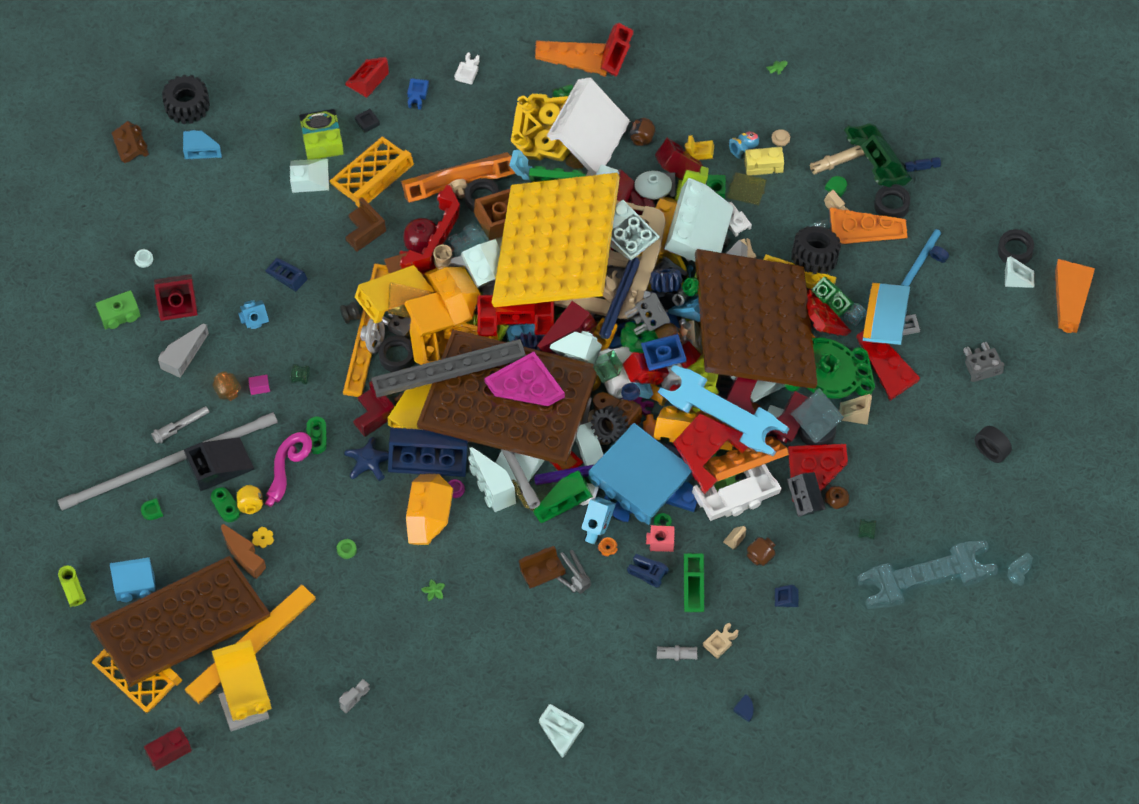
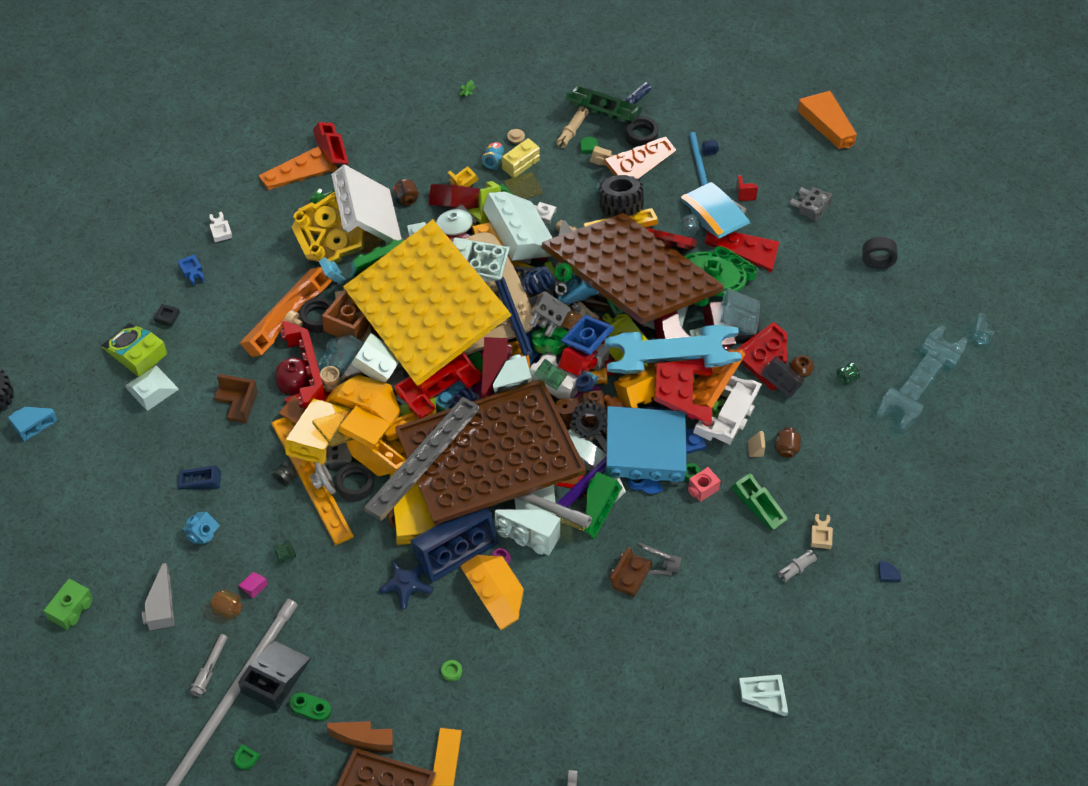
camera: 40 degrees left, 5 degrees down
(143, 258) = (55, 546): light aqua plate -> none
(175, 297) = (114, 559): dark red slope -> none
(249, 499) = (330, 687): yellow head -> none
(262, 532) = (369, 707): yellow plant -> none
(279, 483) = (346, 657): dark pink plant -> none
(317, 436) = (343, 594): green plate -> none
(368, 76) = (137, 280): red slope -> none
(377, 411) = (377, 535): dark red panel -> none
(381, 178) = (219, 351): light orange fence -> none
(434, 590) = (556, 653): bright green plant -> none
(526, 381) = (497, 427): dark pink plate -> none
(598, 510) = (642, 493): medium azure torso -> none
(607, 542) = (666, 515): orange plate -> none
(653, 573) = (715, 516): dark blue piece -> none
(787, 596) = (836, 465): dark blue slope -> none
(832, 296) = (663, 222): green slope -> none
(856, 409) = (760, 289): tan slope -> none
(933, 313) = (746, 191): none -> red panel
(1018, 235) = (755, 120): black tyre -> none
(1018, 274) = (777, 129): light aqua slope -> none

